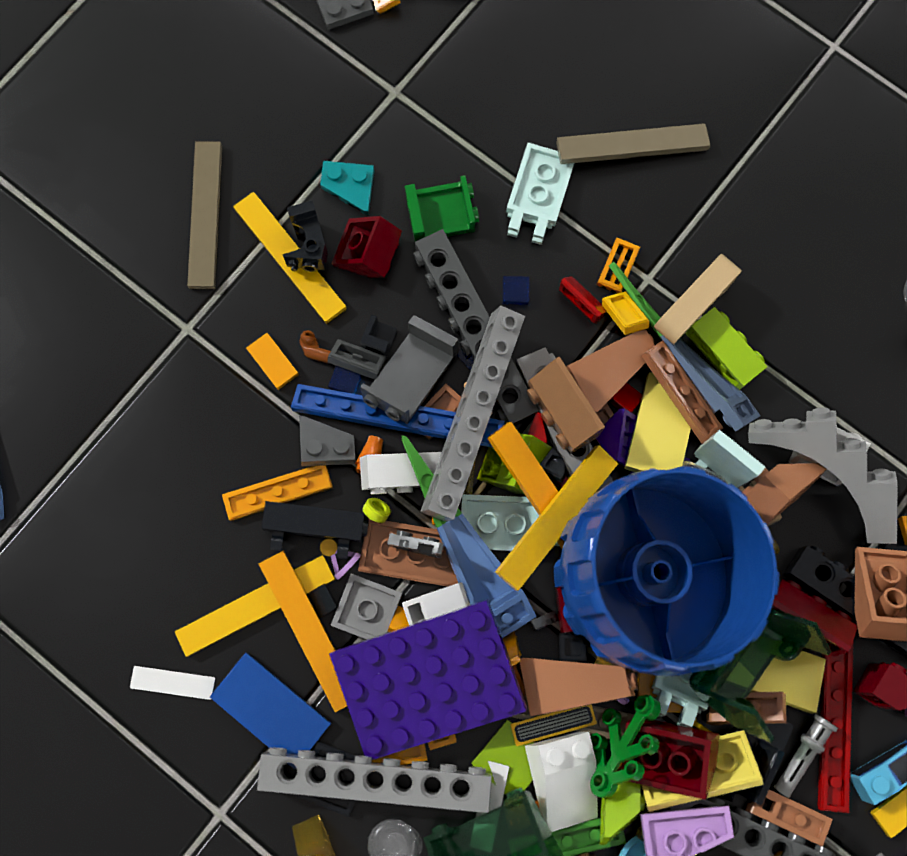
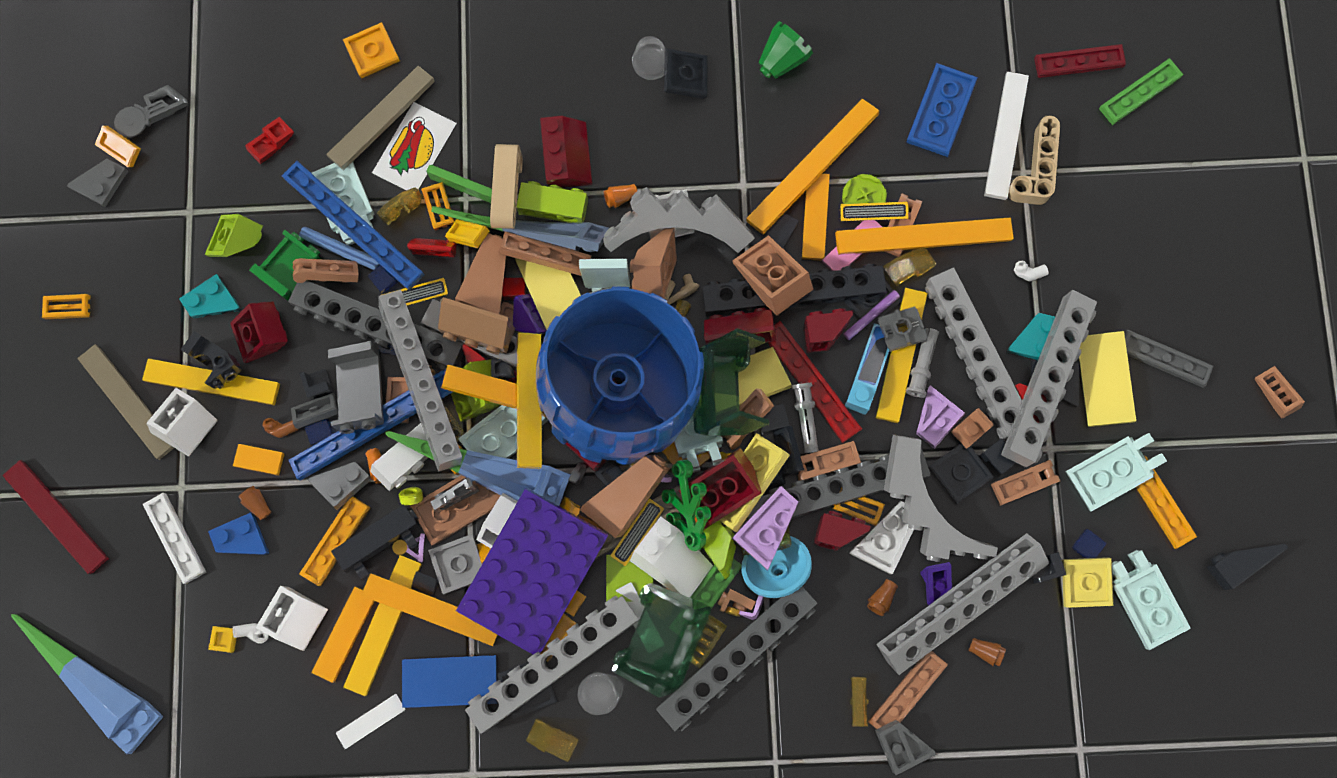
camera: 35 degrees left, 0 degrees up
(62, 265) = (55, 517): none -> dark red tile
(109, 495) = (222, 639): none -> yellow tile
(140, 511) = (251, 632): none -> white arm
(144, 369) = (174, 538): none -> white tile
(182, 530) = (292, 618): none -> white slope
(199, 416) = (239, 537): none -> blue wing
(212, 584) = (343, 636): none -> light orange tile
(234, 272) = (181, 422): none -> white slope
(237, 397) = (255, 502): none -> dark orange cone
(238, 101) = (63, 315): none -> light orange tile
(416, 143) = (233, 235): none -> lime slope
(470, 241) = (324, 270): none -> nougat plate
(499, 232) = (338, 248): none -> medium blue axle
(517, 86) = (270, 141): none -> red slope
(529, 222) = (353, 225): none -> blue tile
(542, 332) = (424, 291): none -> sticker
(593, 237) = (406, 200): none -> clear yellow slope
(639, 195) = (414, 147): none -> sticker
(657, 263) = (459, 183): none -> bright green tile
(673, 76) = (371, 50): none -> light orange tile
(777, 311) = (566, 152): none -> dark red slope
(788, 535) = (689, 288): none -> tan bar
(795, 393) = (619, 195): none -> orange cone

